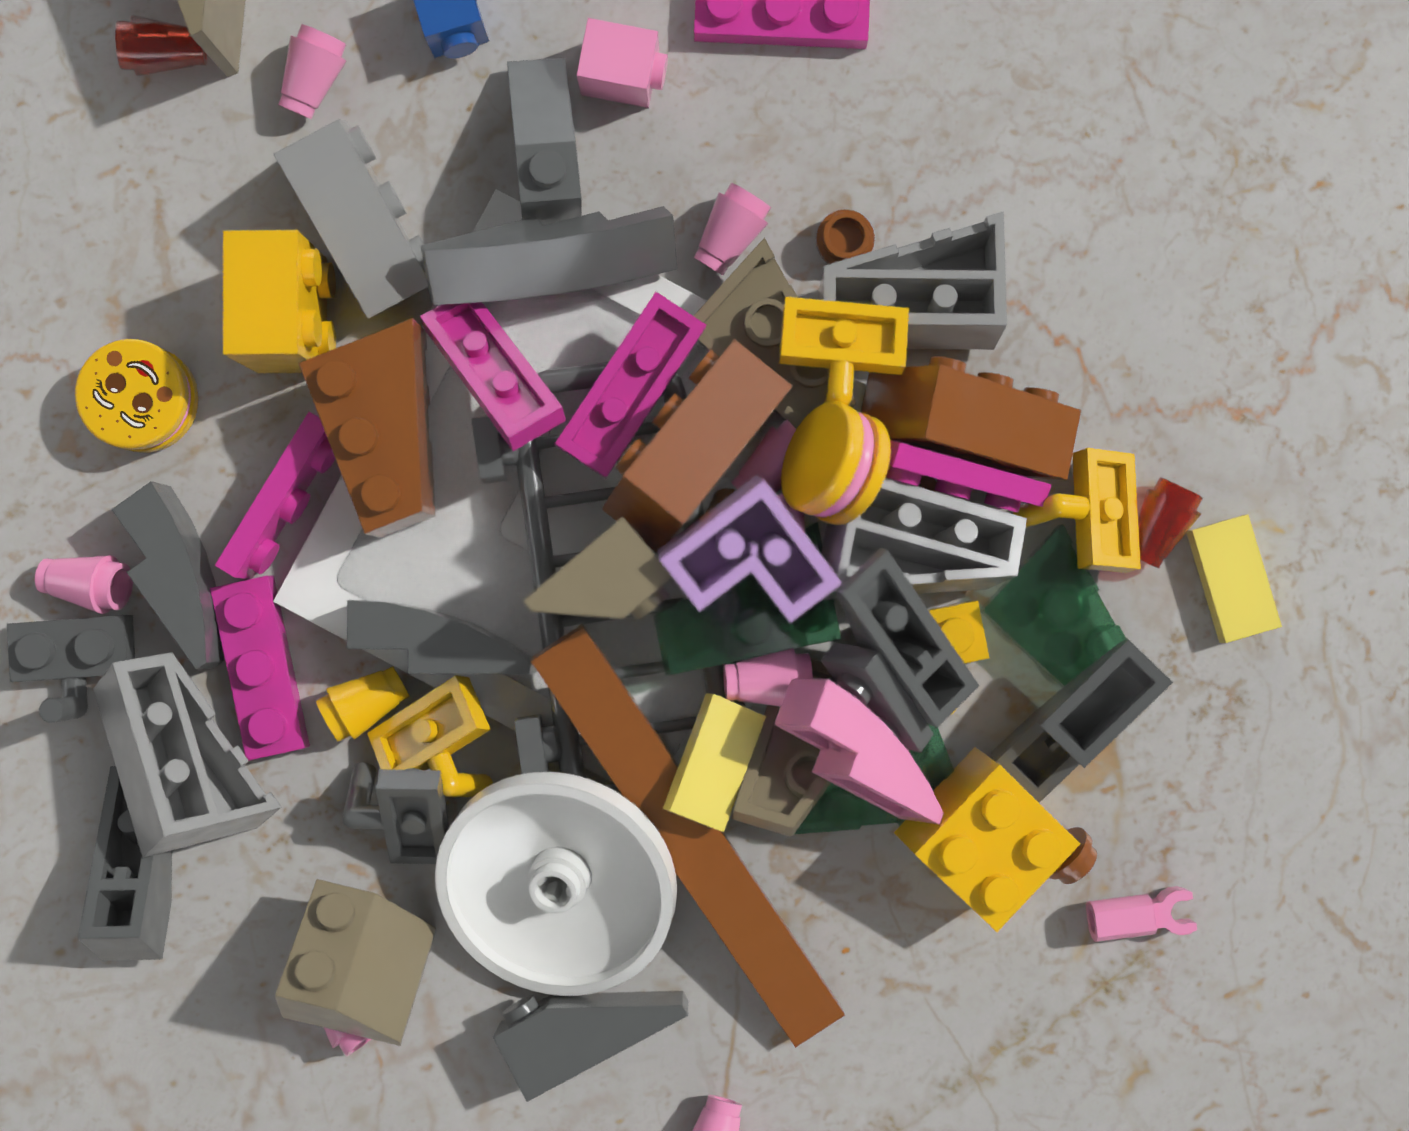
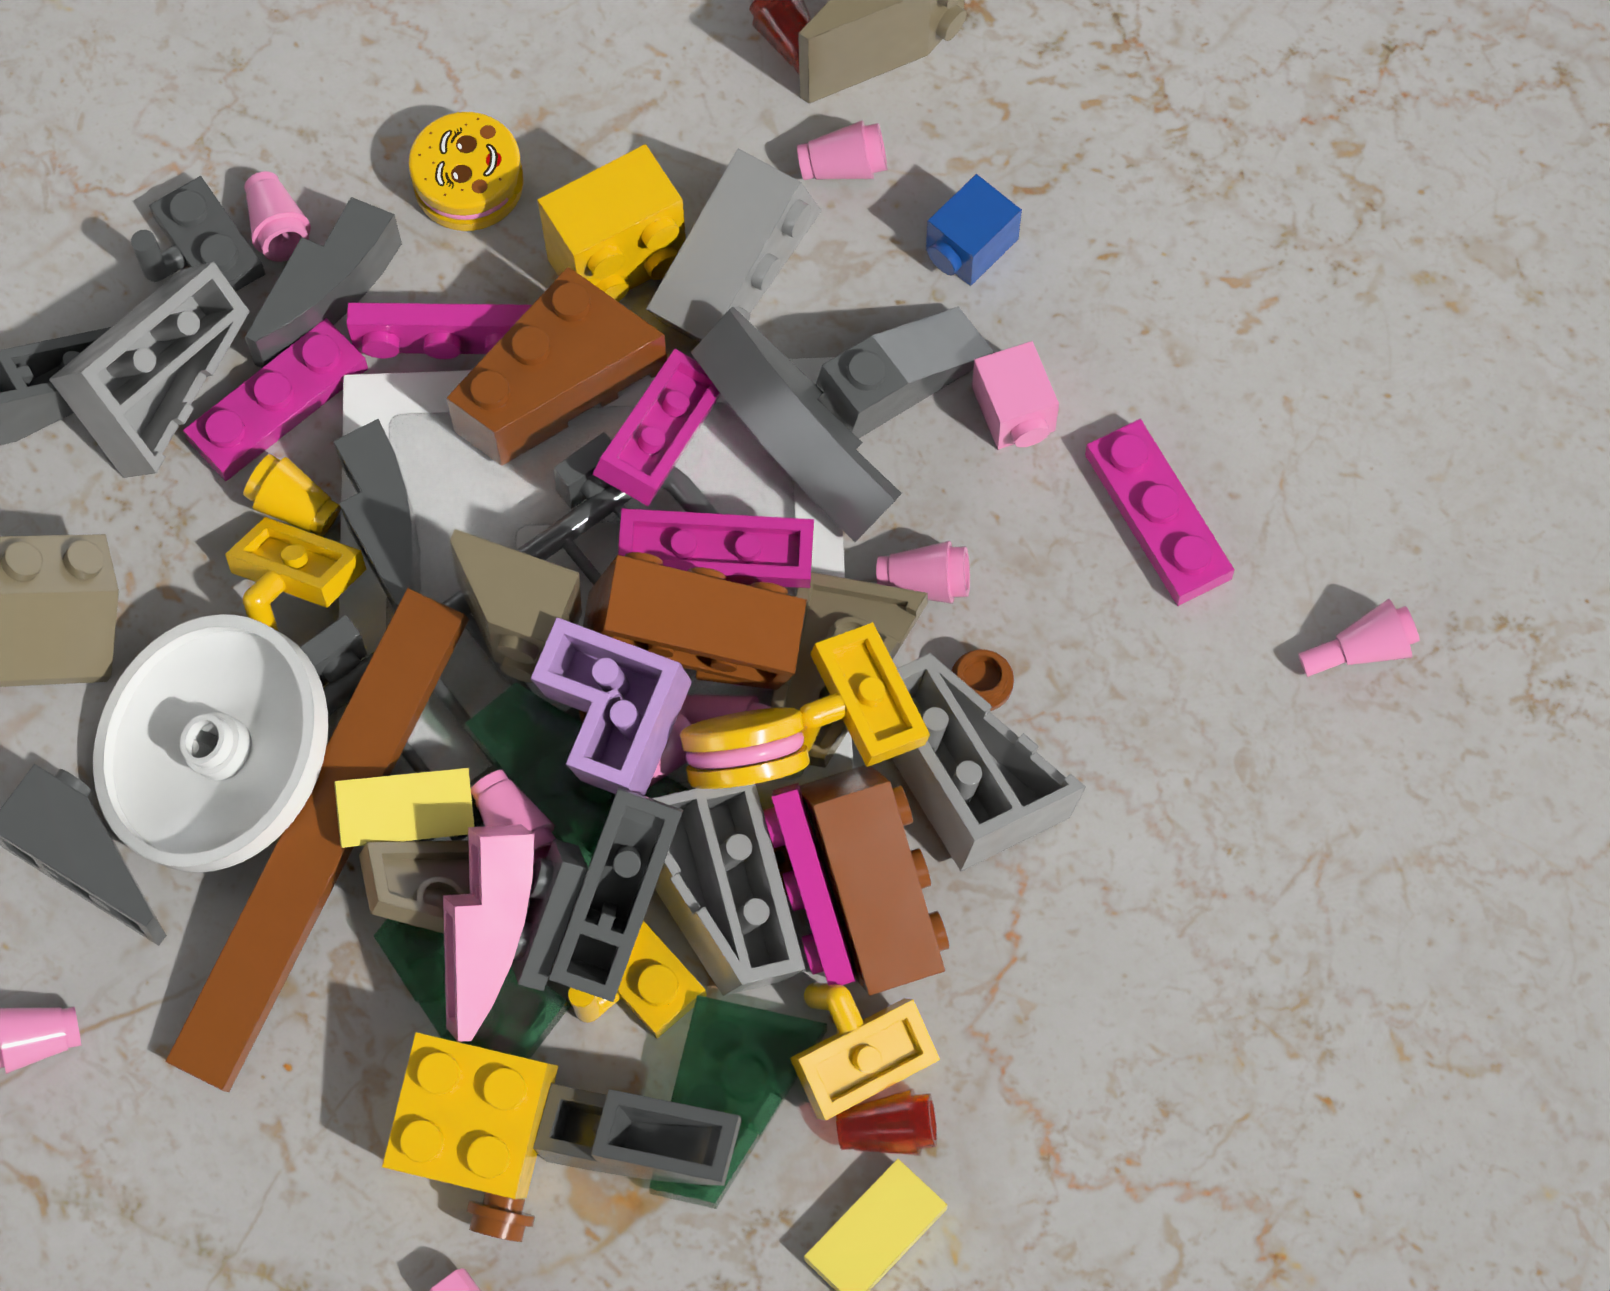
camera: 65 degrees right, 20 degrees down
(408, 810) = (212, 576): dark grey plate -> none

